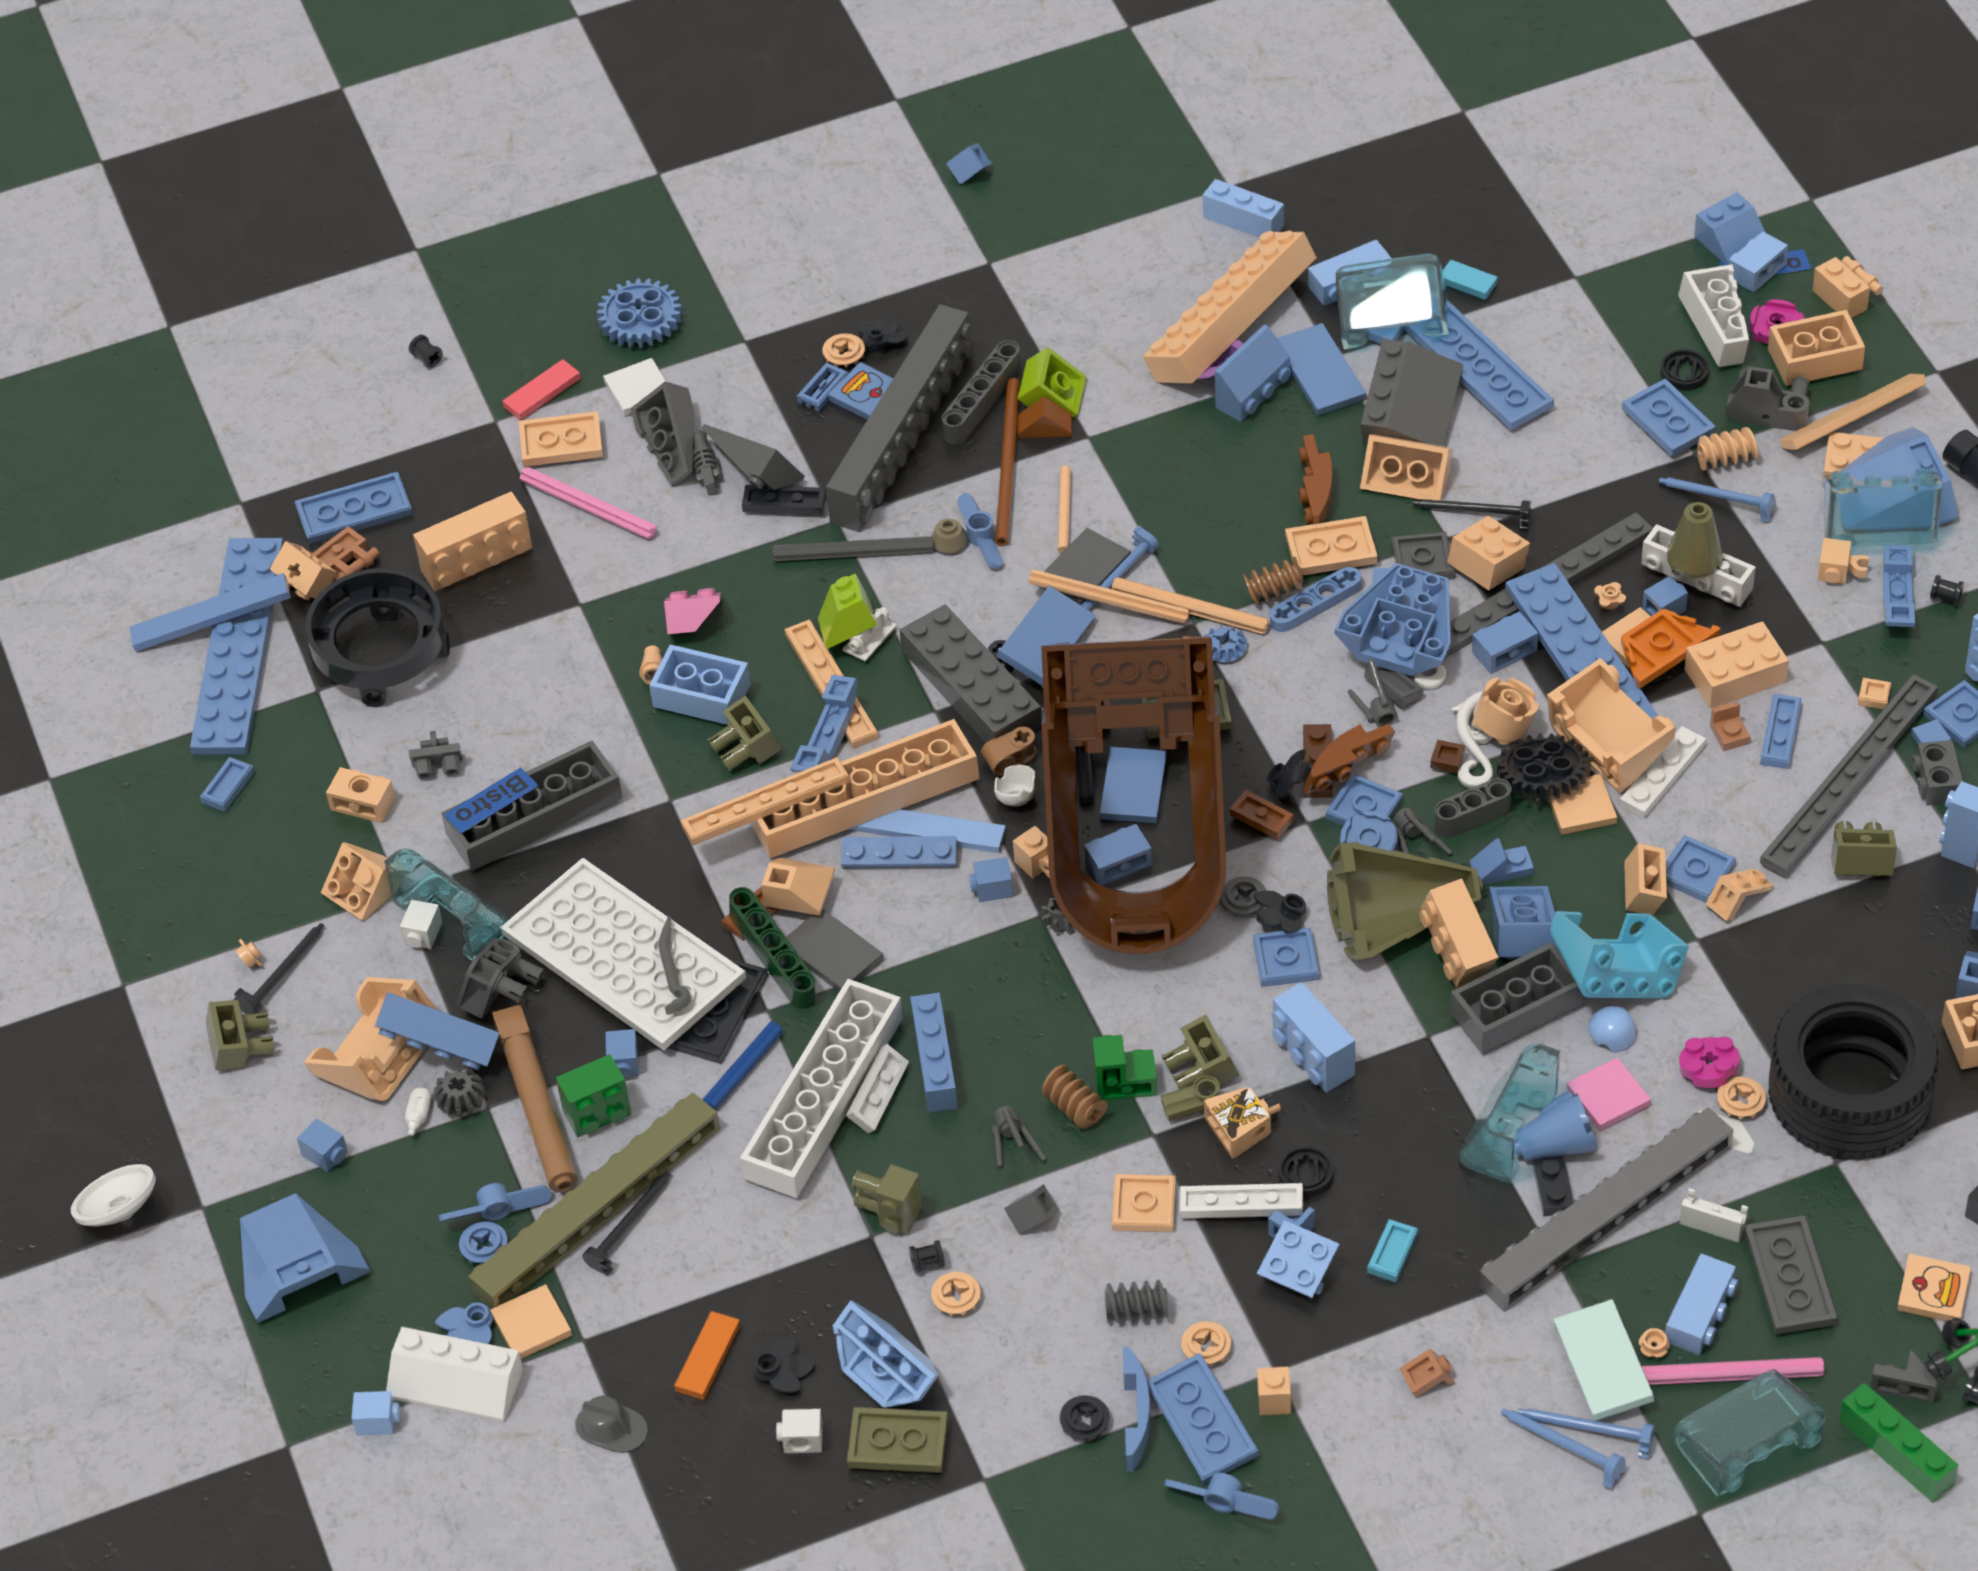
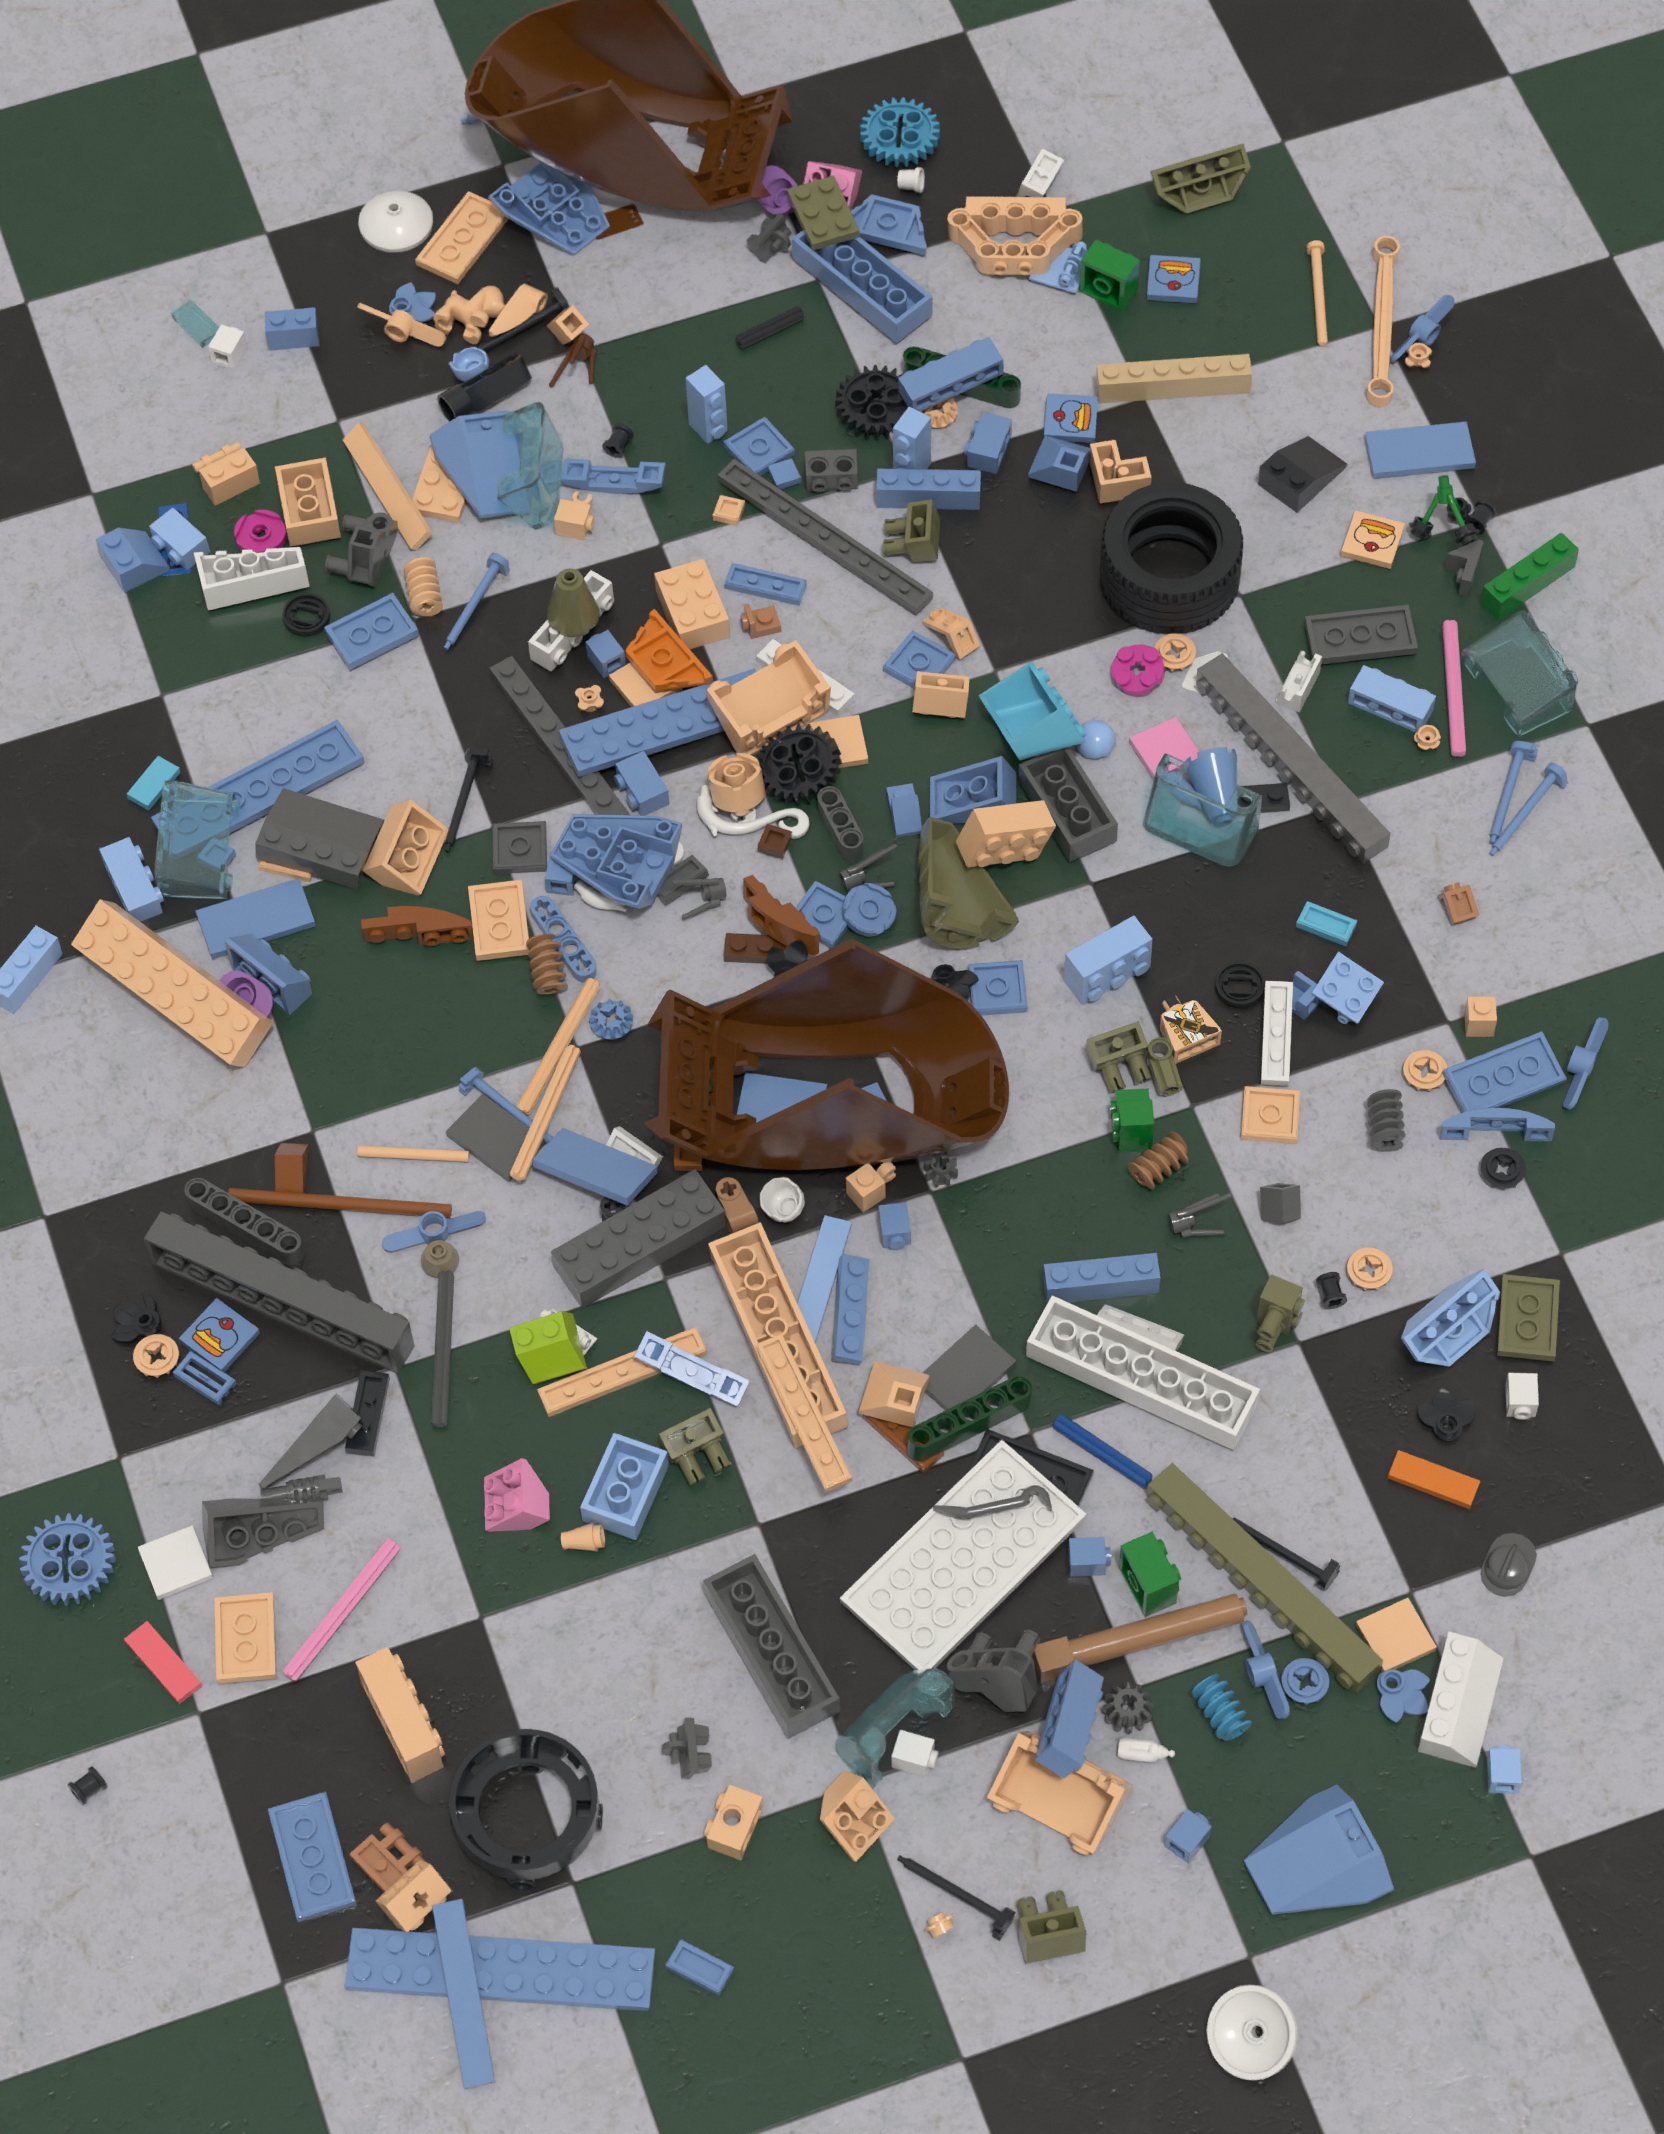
camera: 90 degrees left, 10 degrees up
(452, 1166) = (1220, 1709): none -> dark azure piece
(490, 800) = (776, 1676): blue sticker -> none
(1055, 379) = (244, 1157): lime slope -> none
(1488, 552) = (534, 785): light nougat brick -> none
(1603, 1360) = (1448, 772): light aqua tile -> none
(1926, 858) = (945, 487): none -> medium blue brick

